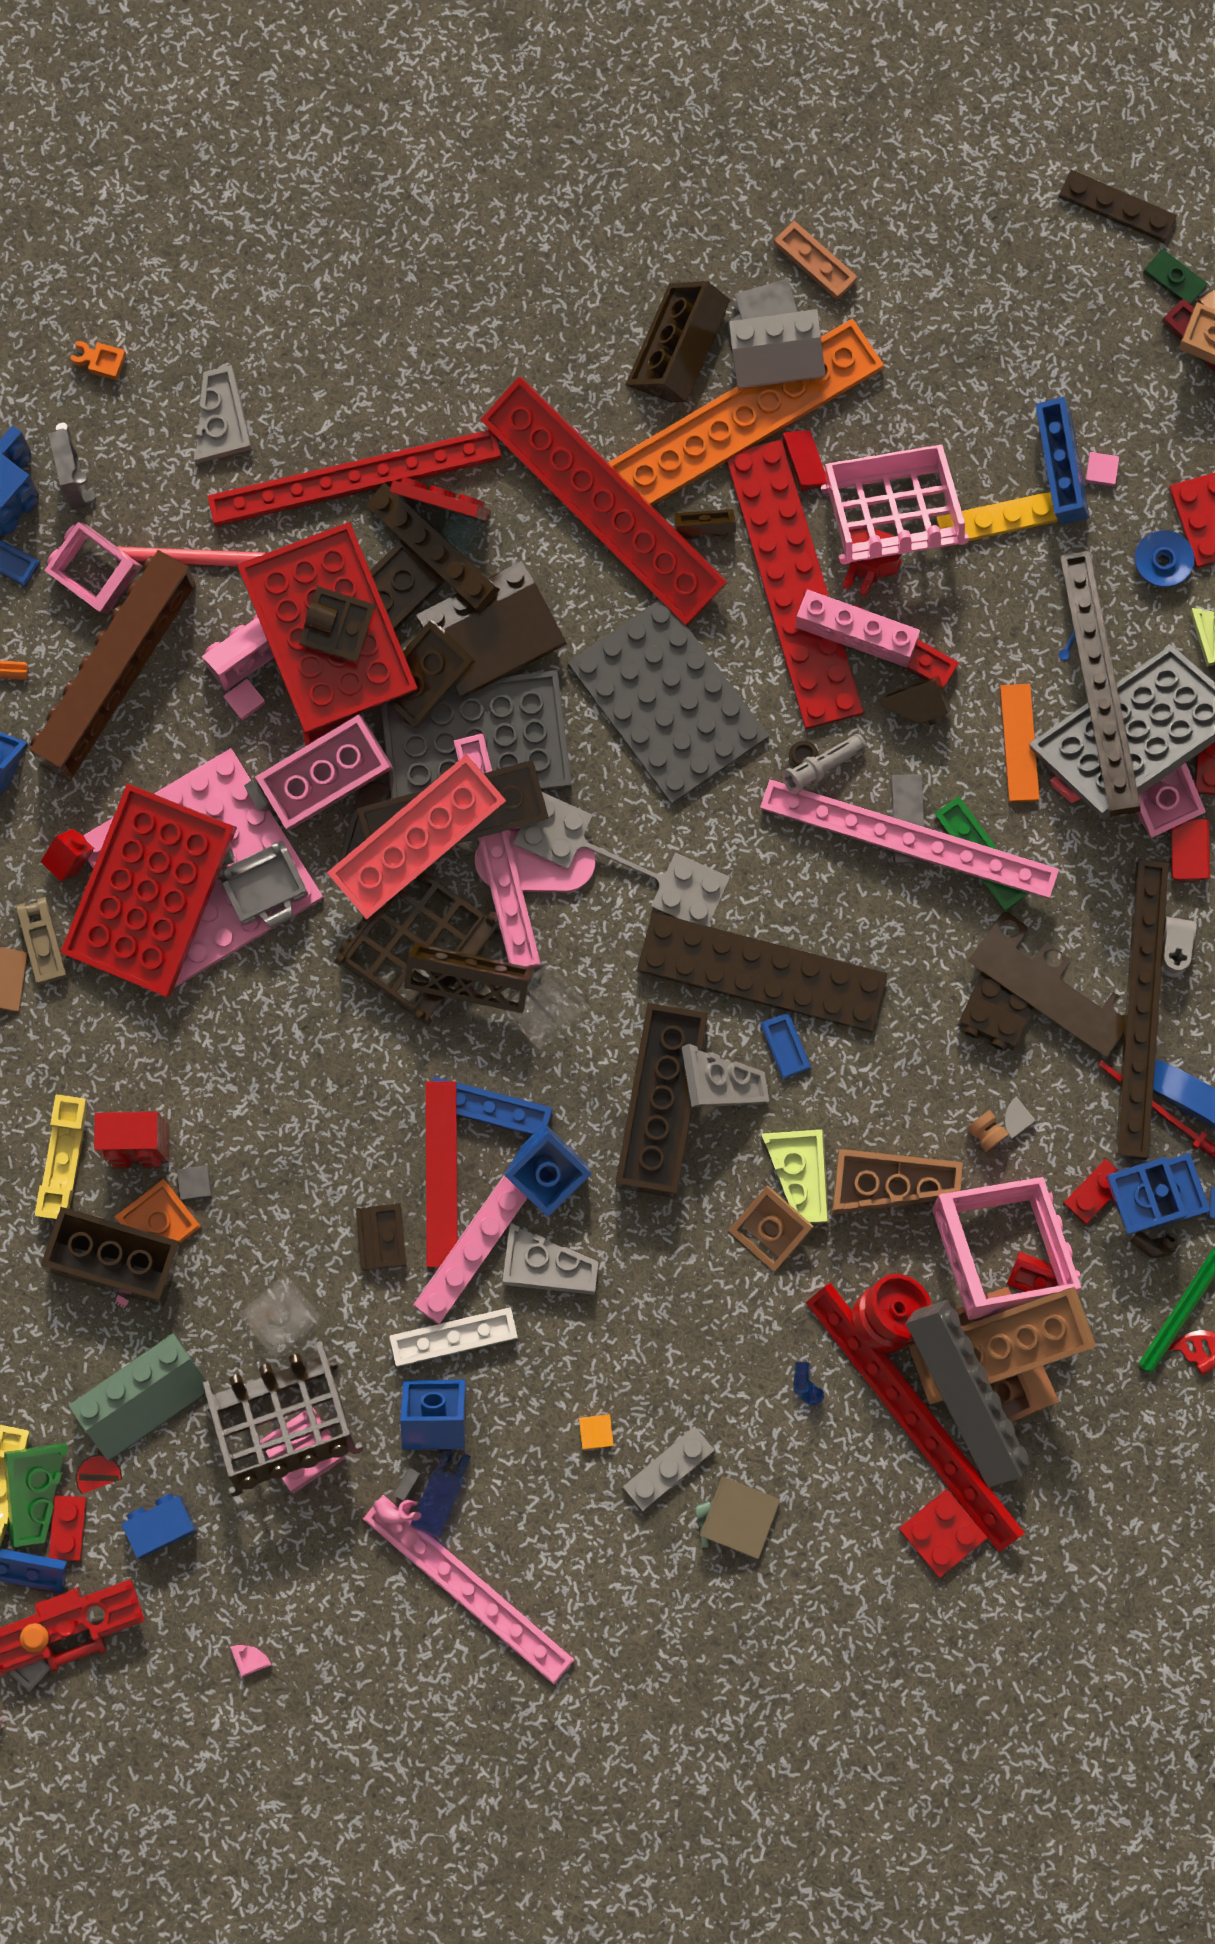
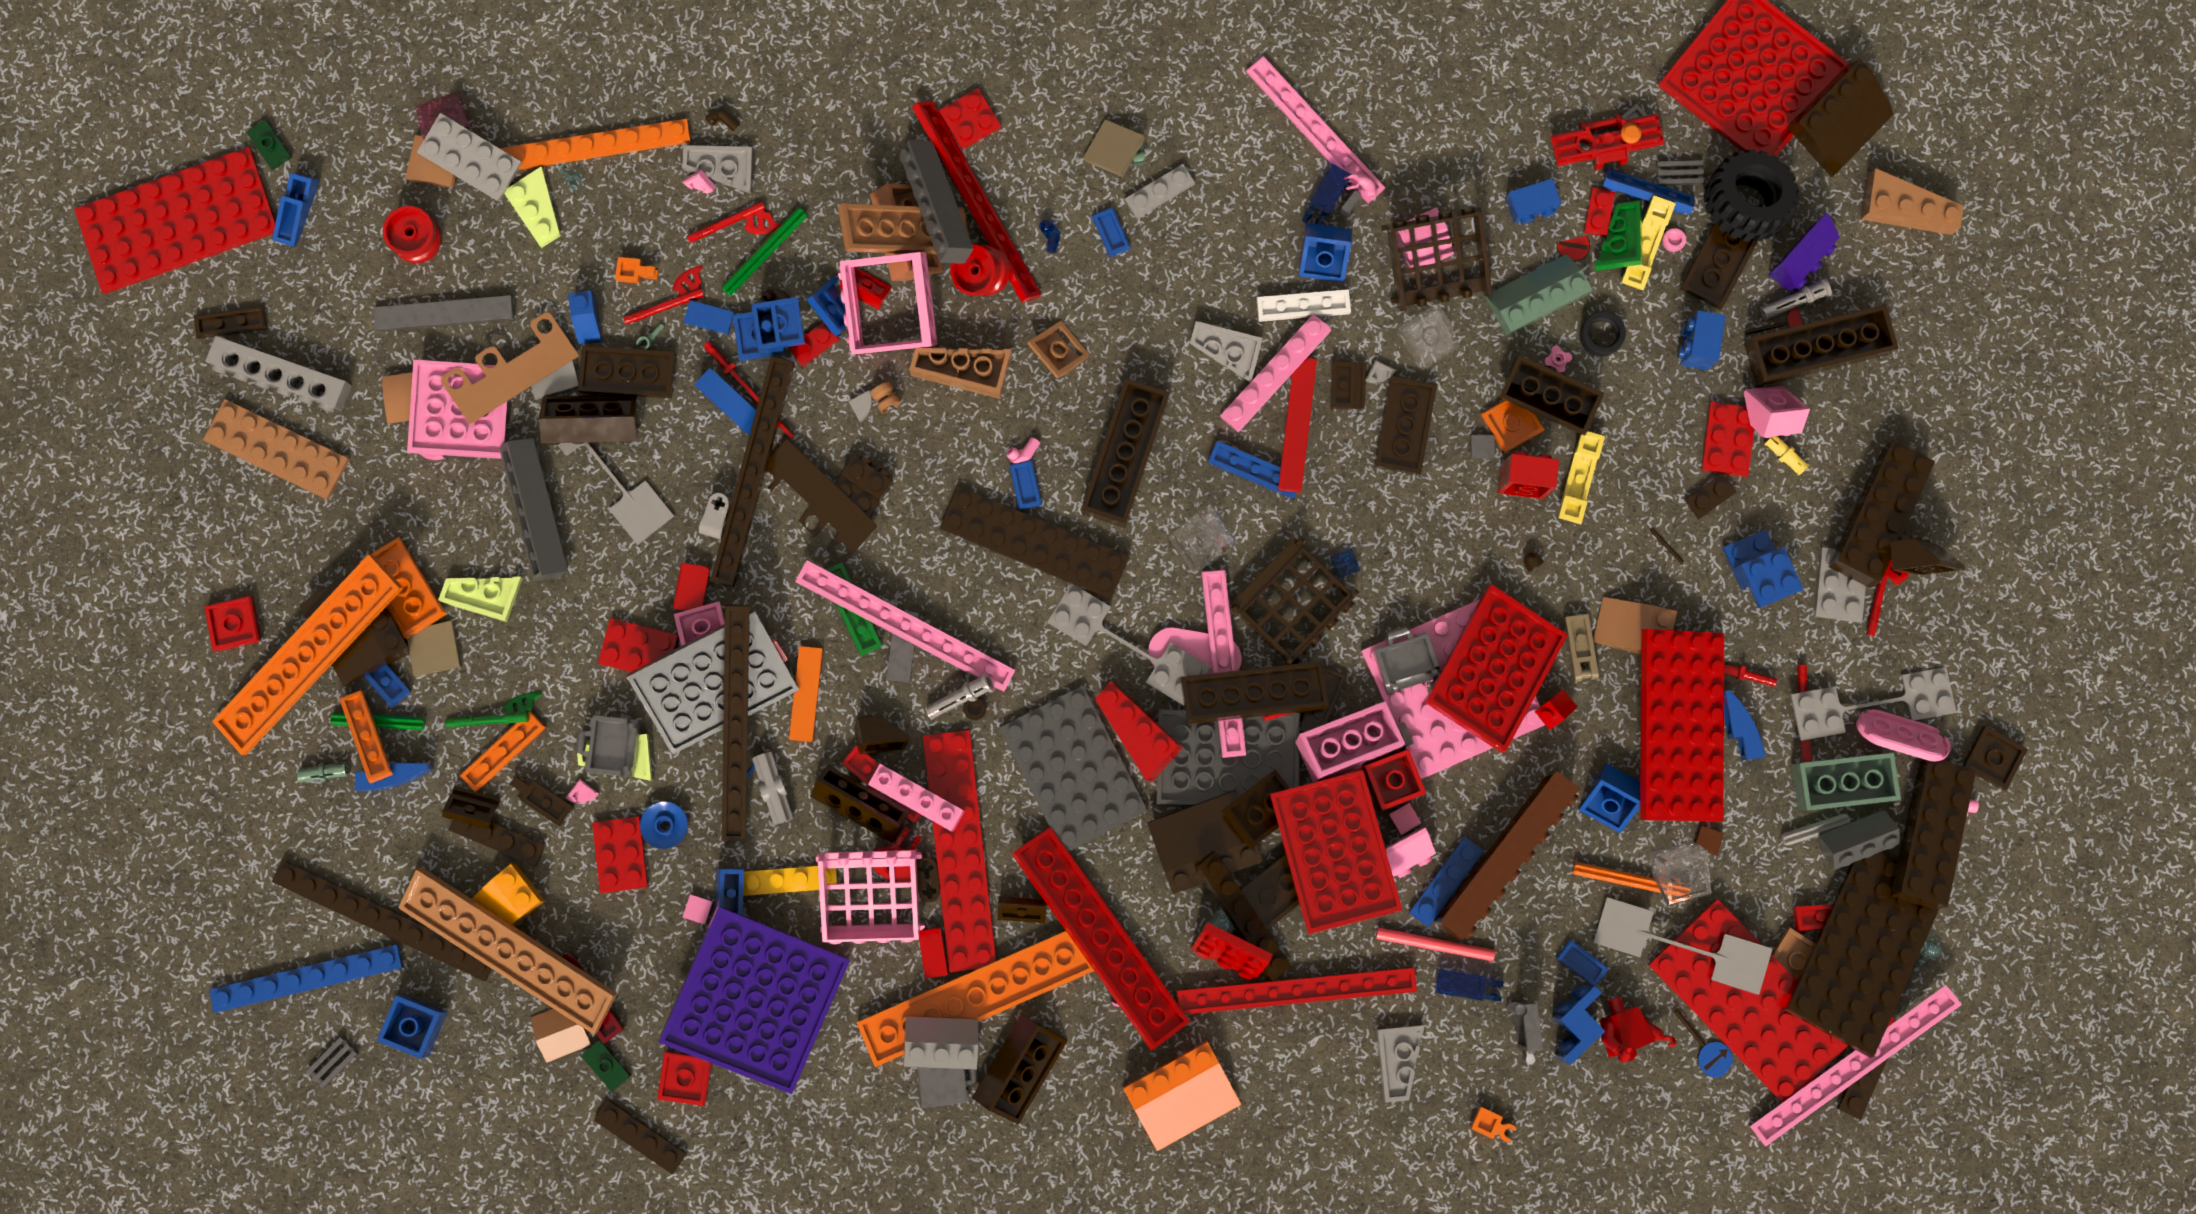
camera: 175 degrees left, 5 degrees up
(32, 1340) = (1608, 317): none -> black tyre
(108, 1322) = (1558, 365): none -> bright pink plate
(114, 1041) = (1532, 560): none -> dark brown hinge
(116, 584) = (1528, 928): bright pink window -> none
(146, 513) = (1465, 985): none -> clear blue hinge
(184, 632) = (1446, 881): none -> blue plate
(249, 1659) = (1477, 103): bright pink tile -> none
(262, 735) = (1393, 780): none -> red brick
(298, 1194) = (1405, 425): none -> dark brown plate
(337, 624) = (1328, 848): dark brown plate -> none
(341, 1262) = (1379, 373): none -> light grey tile
(357, 1004) = (1345, 563): none -> clear blue tile
(416, 836) = (1285, 674): coral plate -> none
(472, 968) = (1257, 566): dark brown fence -> none
(480, 341) = (1181, 1095): none -> slope
(547, 1170) = (1218, 412): blue slope -> none
(593, 751) = (1140, 733): none -> red wedge
(596, 1432) = (1208, 224): light orange tile -> none
(722, 1082) = (1078, 457): light grey wing -> none
(726, 1402) = (1111, 232): none -> blue tile
(795, 1084) = (1024, 454): none -> bright pink arm
(801, 1170) = (1028, 388): yellowish green wing -> none
(815, 260) = (896, 1124): nougat plate -> none
(820, 544) = (934, 880): none -> dark brown beam
(929, 614) = (859, 803): none -> dark brown brick
(1012, 367) = (753, 1000): none -> dark purple plate
(1038, 621) = (772, 788): none -> light grey piece
(1078, 276) = (684, 1079): none -> red plate
(1087, 1240) = (829, 306): none -> blue wing

